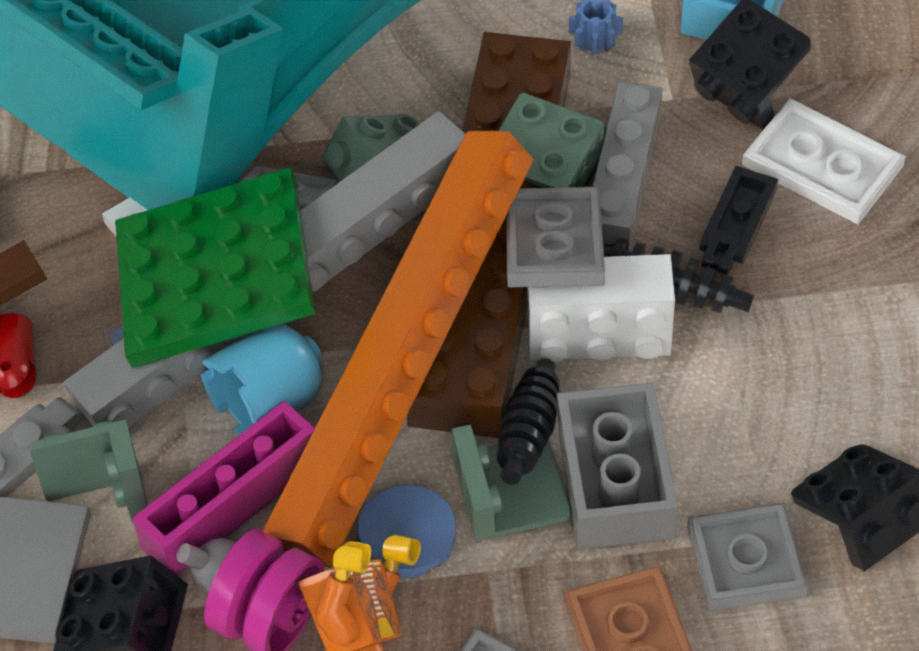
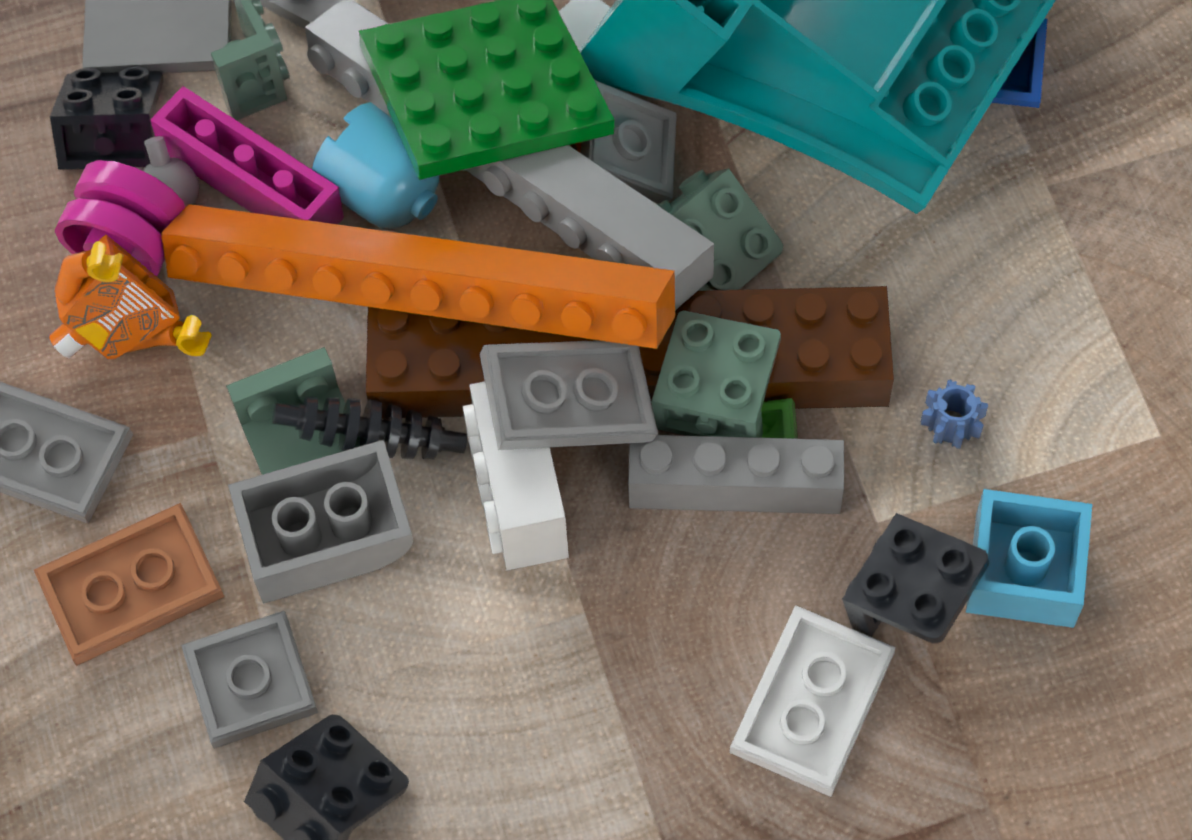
camera: 80 degrees right, 10 degrees up
(409, 513) = (244, 341): medium blue tile -> none
(687, 281) = (595, 546): black piece -> none
(737, 219) = (693, 609): black hinge -> none

